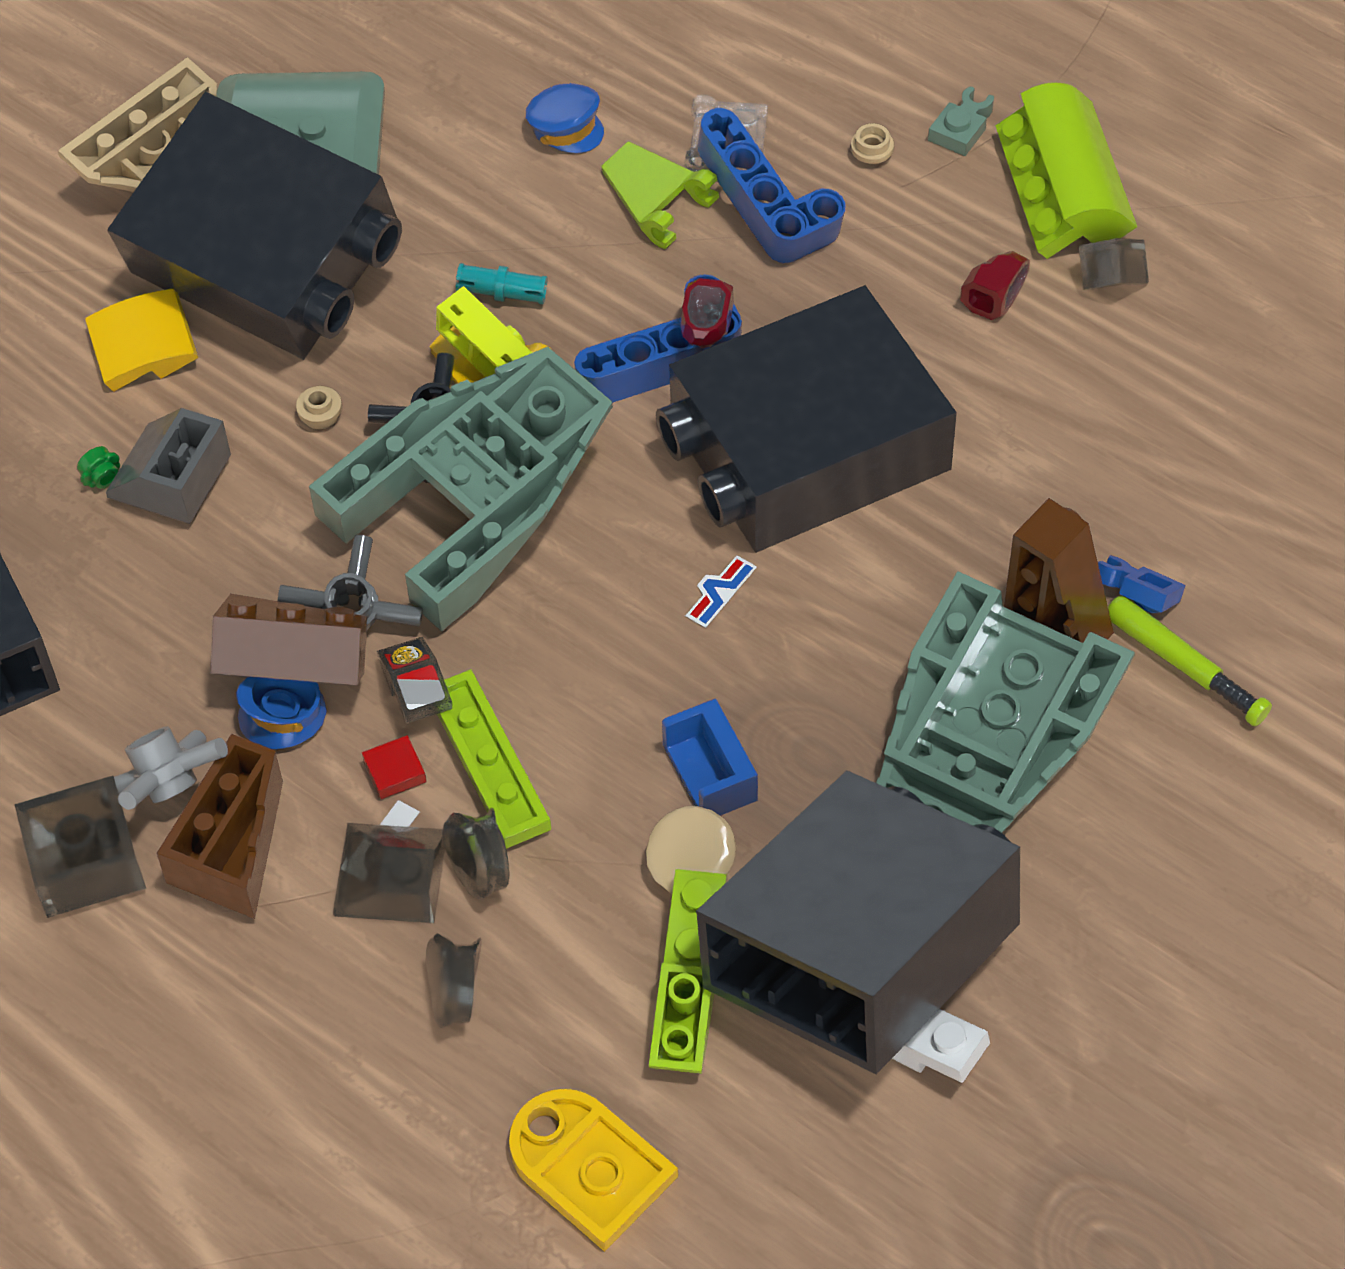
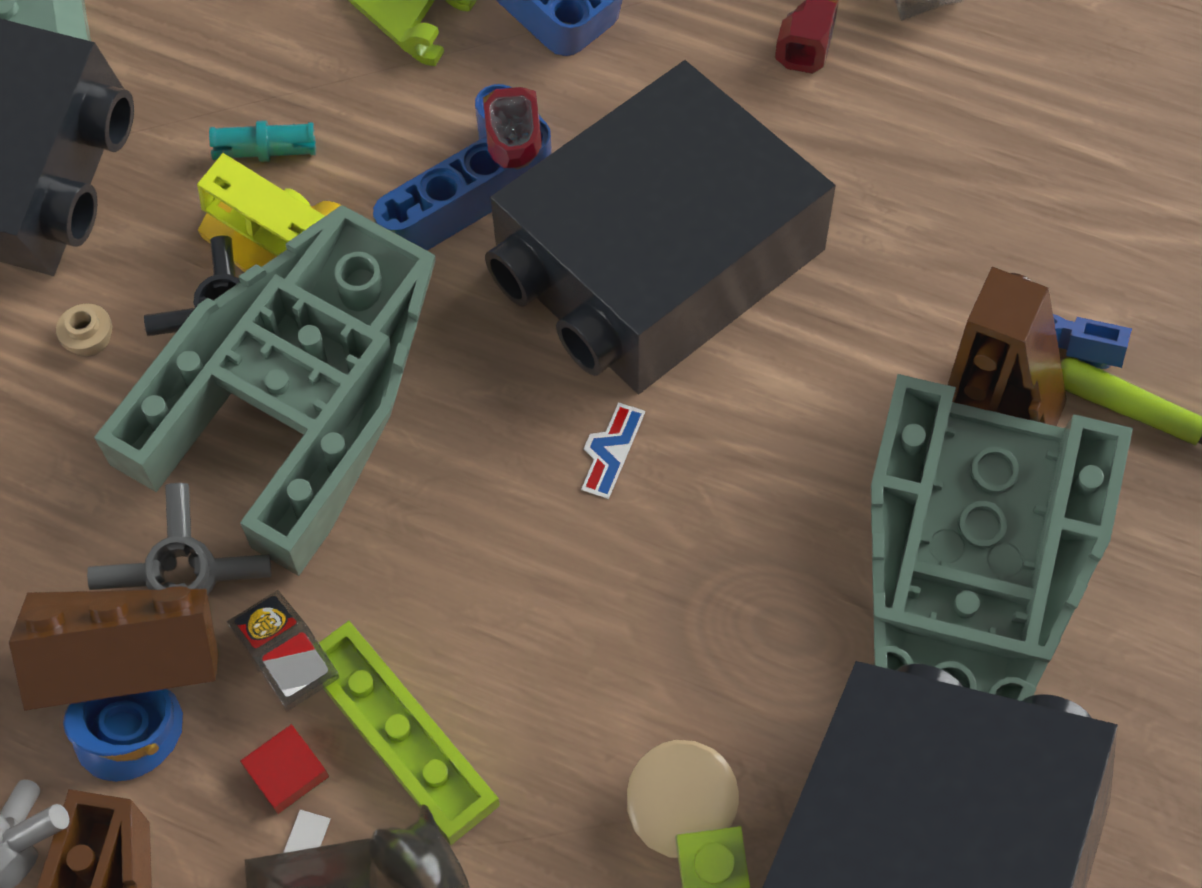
camera: 15 degrees left, 5 degrees up
(710, 758) = (668, 669): blue panel -> none

